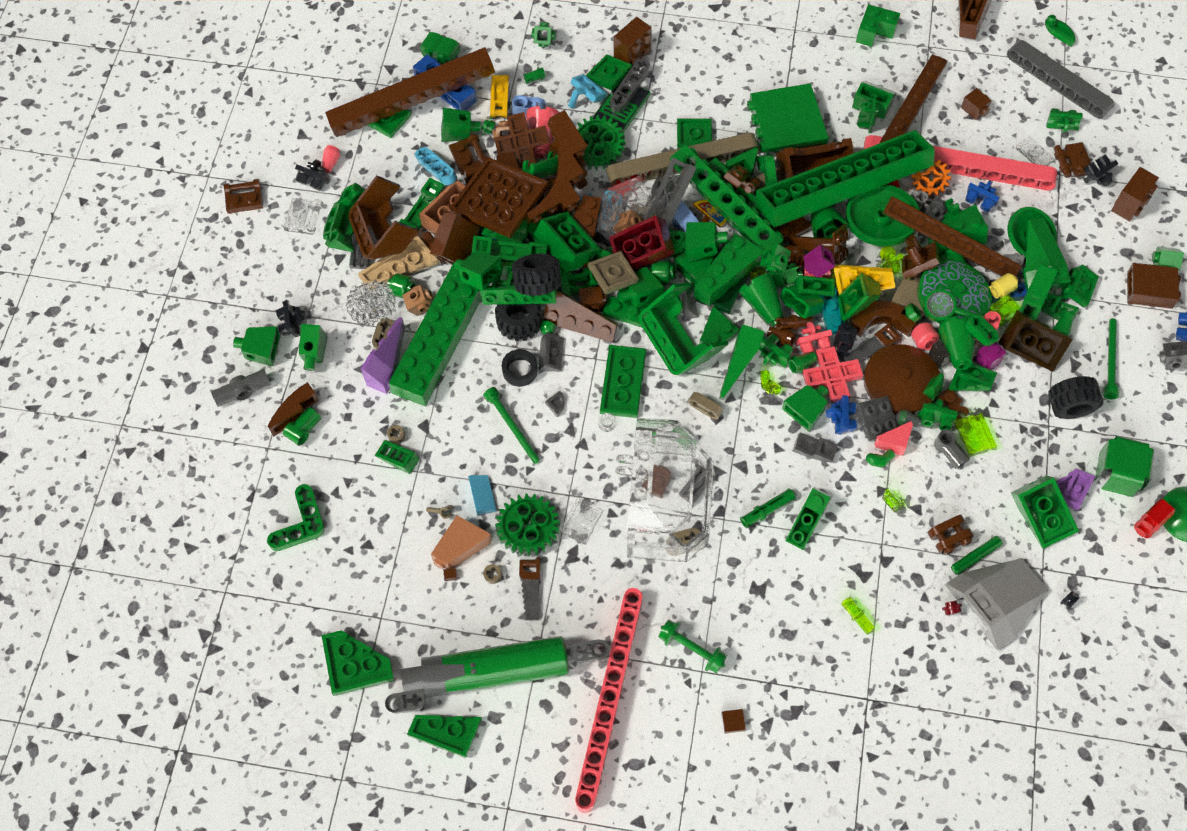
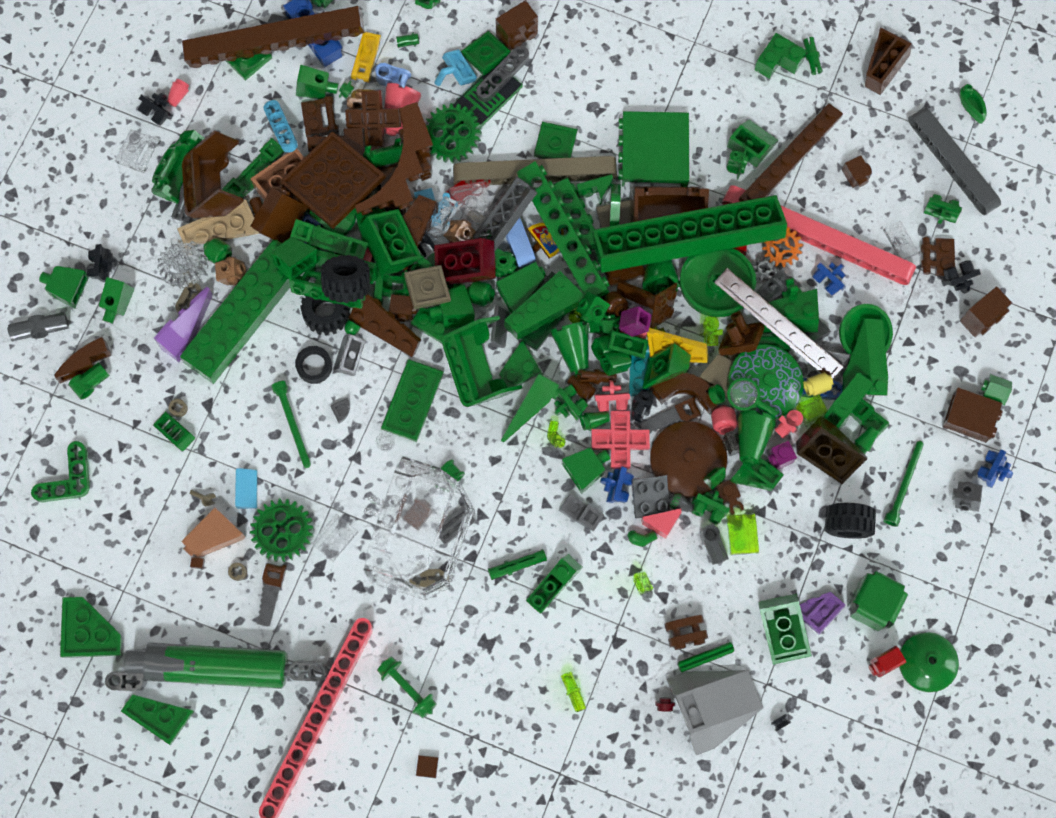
camera: 10 degrees right, 10 degrees up
(243, 201) = (82, 121): reddish brown plate -> none
(703, 239) = (526, 270): green torso -> none
(705, 405) = (485, 445): dark tan beam -> none
(741, 178) = (585, 208): reddish brown plate -> none
(905, 20) = (812, 55): none -> green pin
(981, 330) = (776, 431): green beam -> none
(1081, 286) = (899, 398): green bracket -> none

